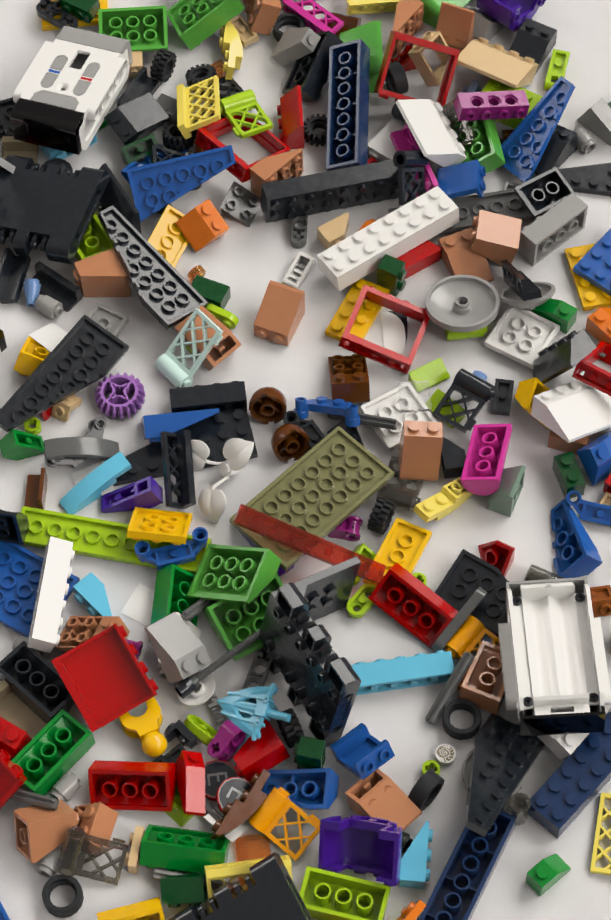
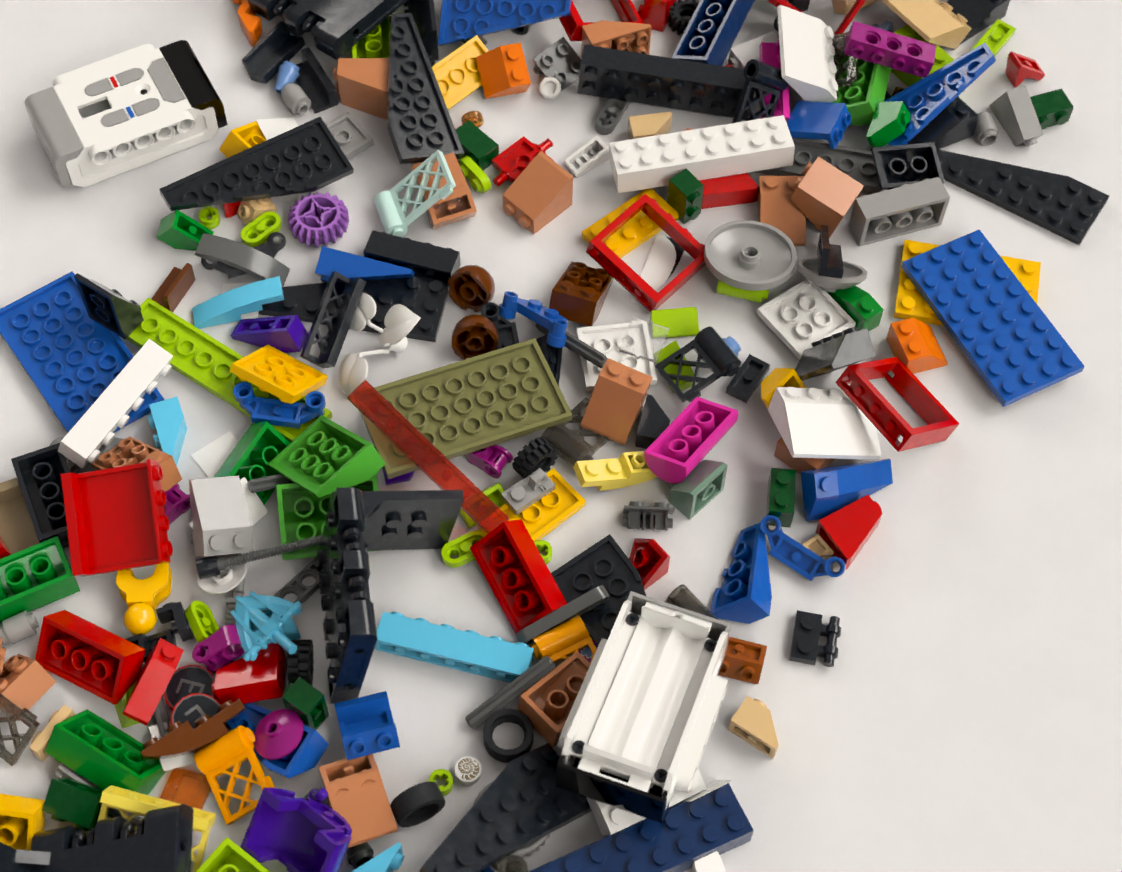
camera: 20 degrees right, 0 degrees up
(77, 421) = (259, 229): none -> lime plate
(242, 226) = (550, 88): none -> white tile
(249, 292) = (517, 158): none -> red plate
(309, 787) = (284, 739): none -> magenta dish
(358, 810) = (317, 794): none -> dark purple piece
(388, 541) = (528, 491): none -> light grey hinge
(488, 523) = (659, 509): none -> dark grey hinge
(514, 163) = (887, 123): none -> green slope
(589, 82) = (1022, 67): none -> red slope

